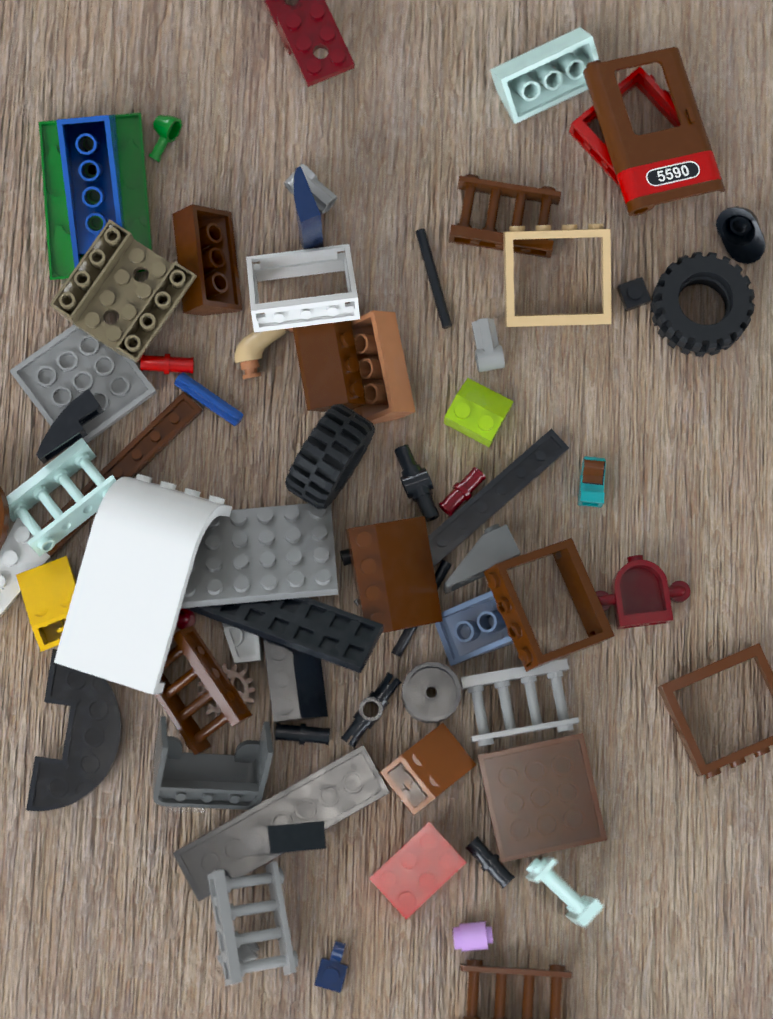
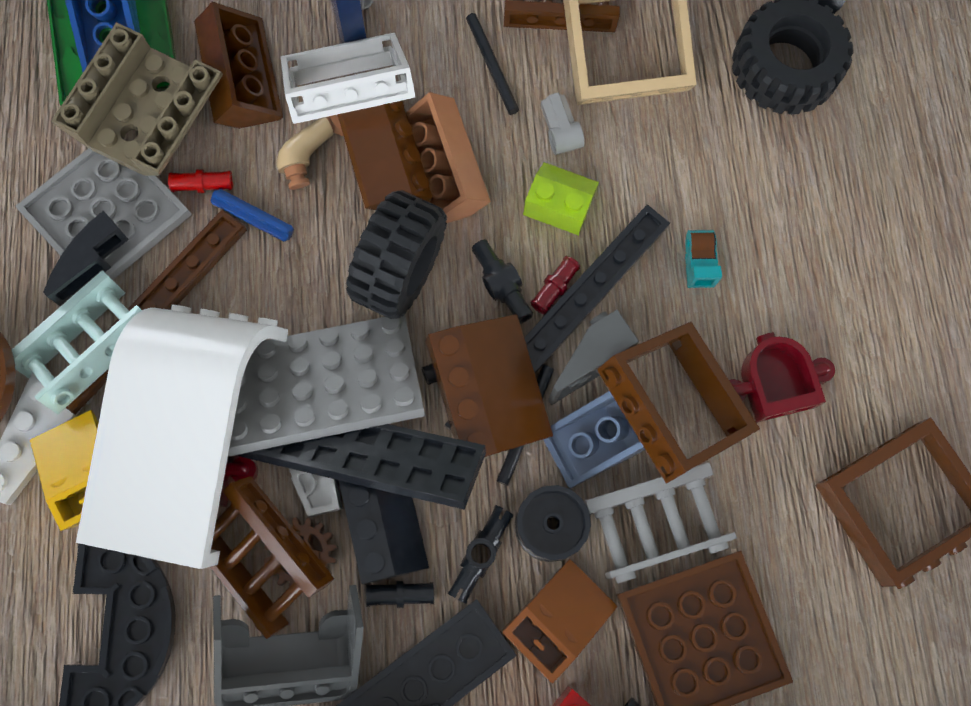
camera: 10 degrees left, 5 degrees down
(633, 294) = (712, 57): black plate -> none

